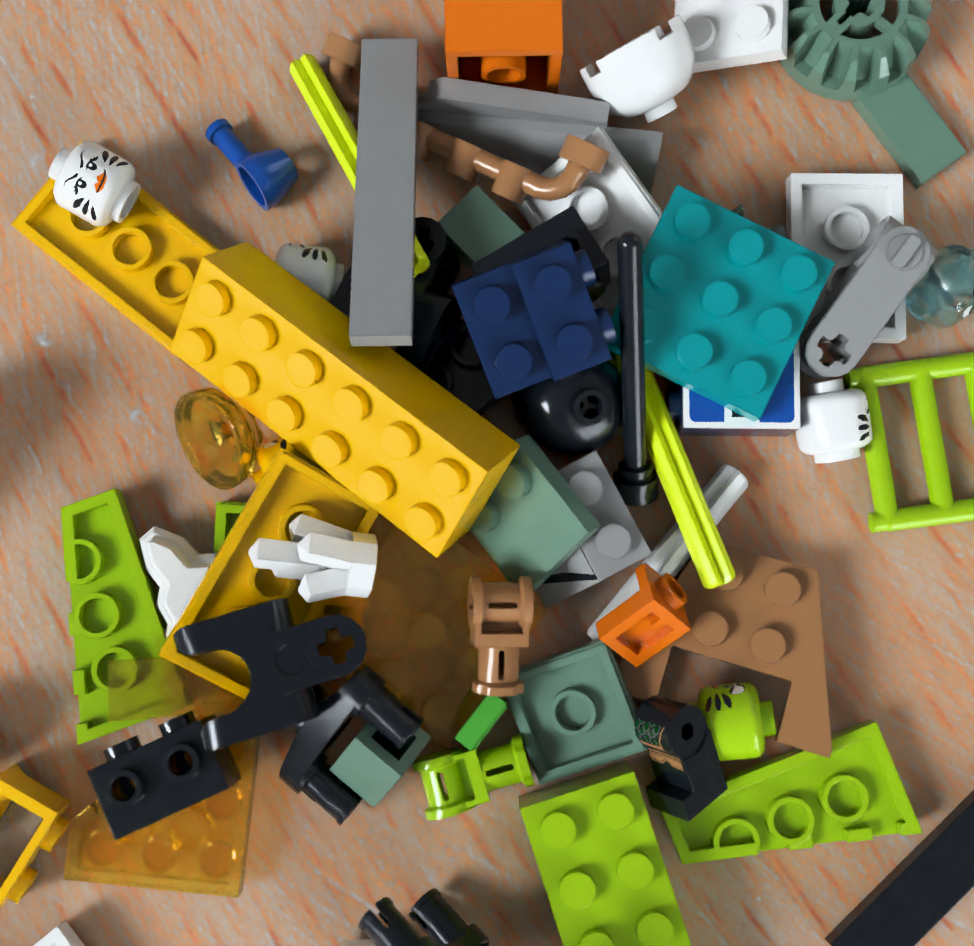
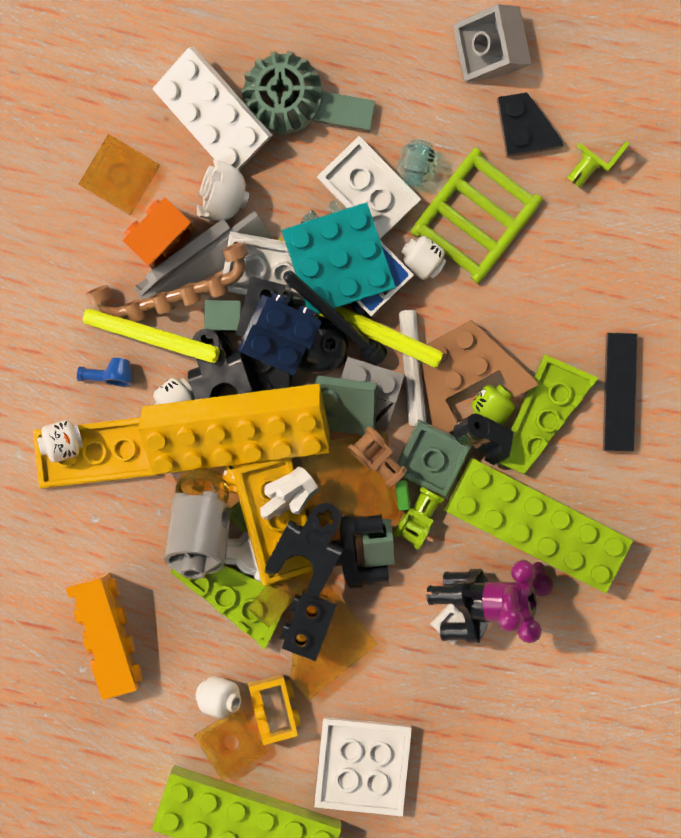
camera: 50 degrees left, 5 degrees up
(139, 490) = (197, 534): none -> light grey cylinder
(385, 195) = (175, 336): light grey tile -> none
(646, 619) = (426, 399): orange bracket -> none
(865, 298) = (390, 202): light grey piece -> none

